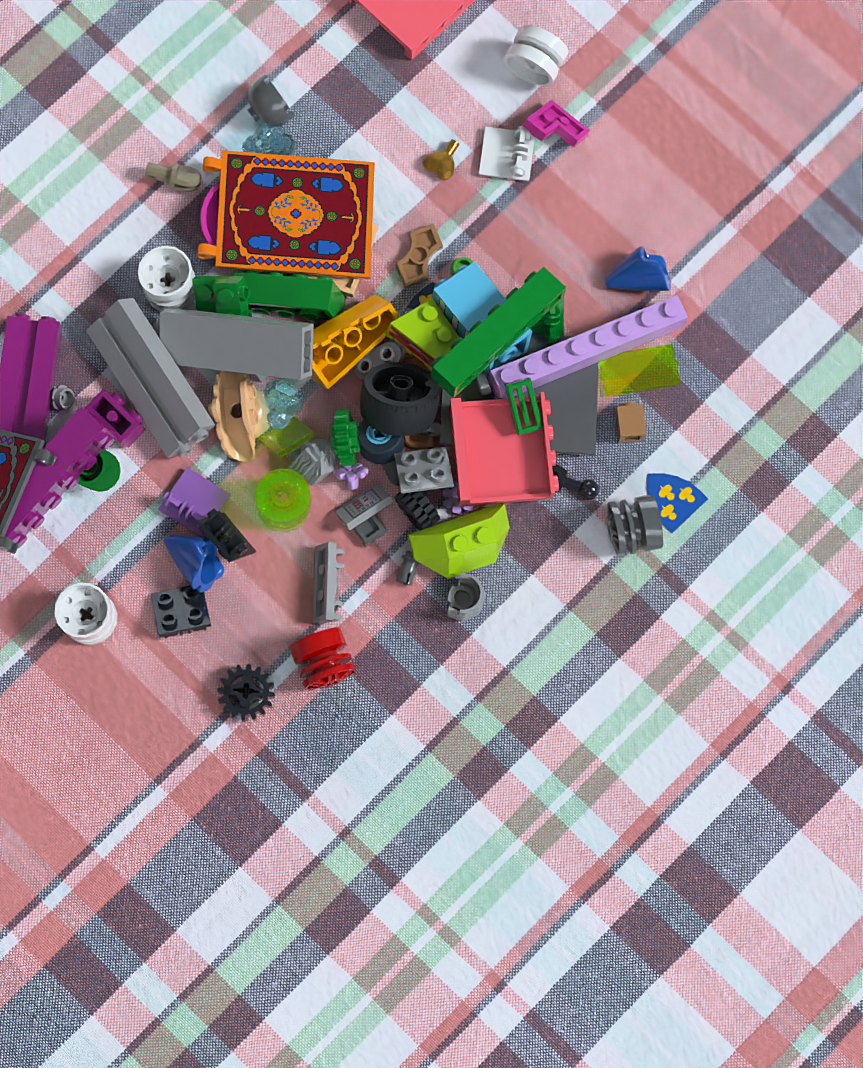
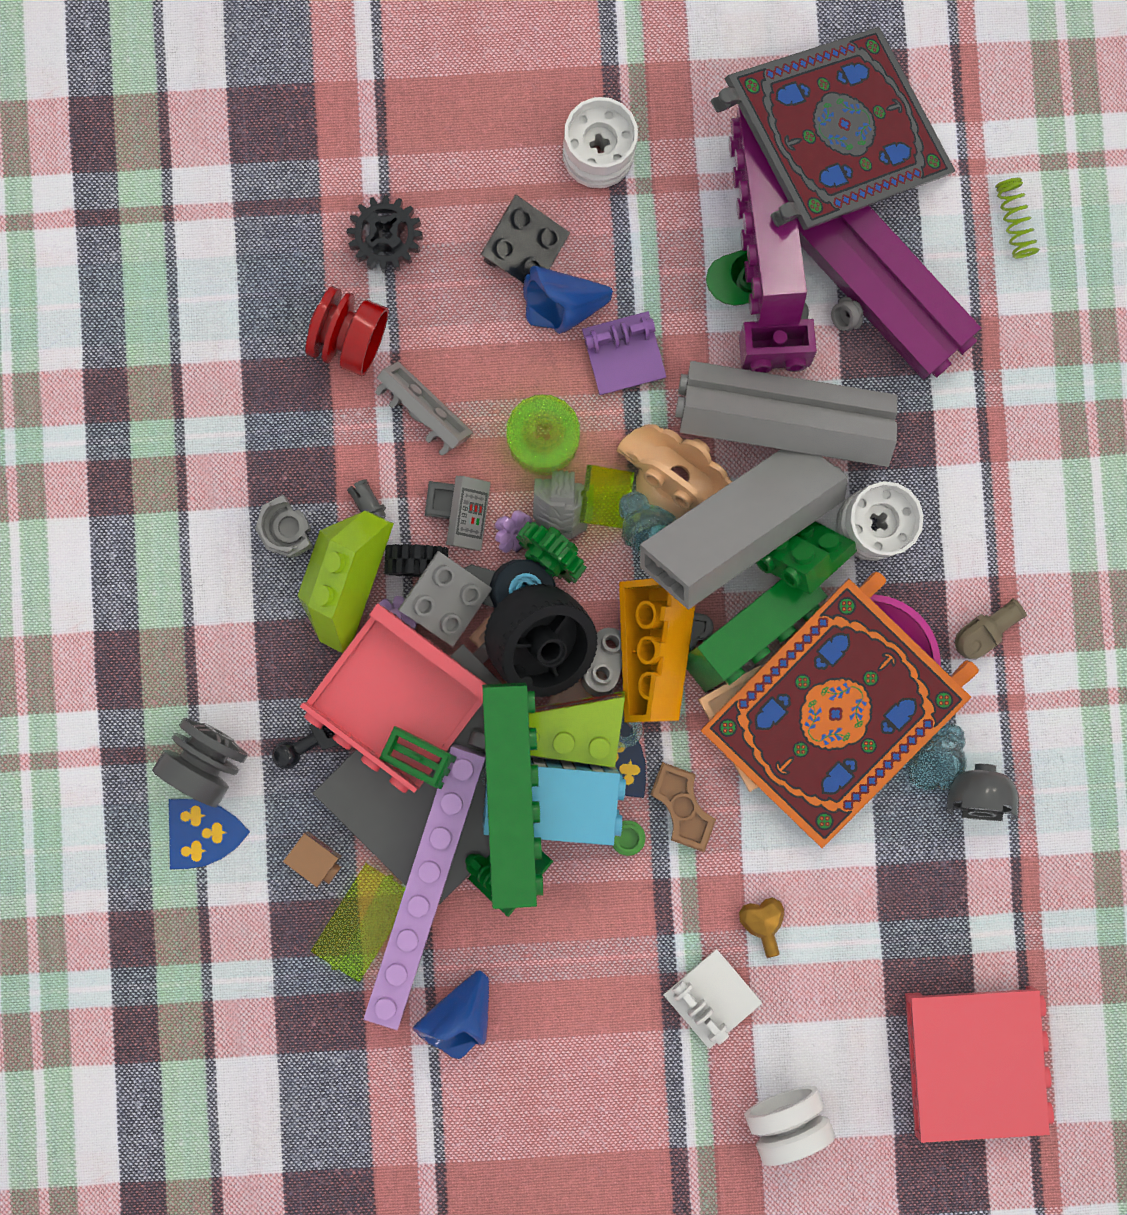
camera: 135 degrees right, 10 degrees up
(225, 536) = (556, 346): black hinge -> none
(555, 119) = (701, 1084): dark pink plate -> none

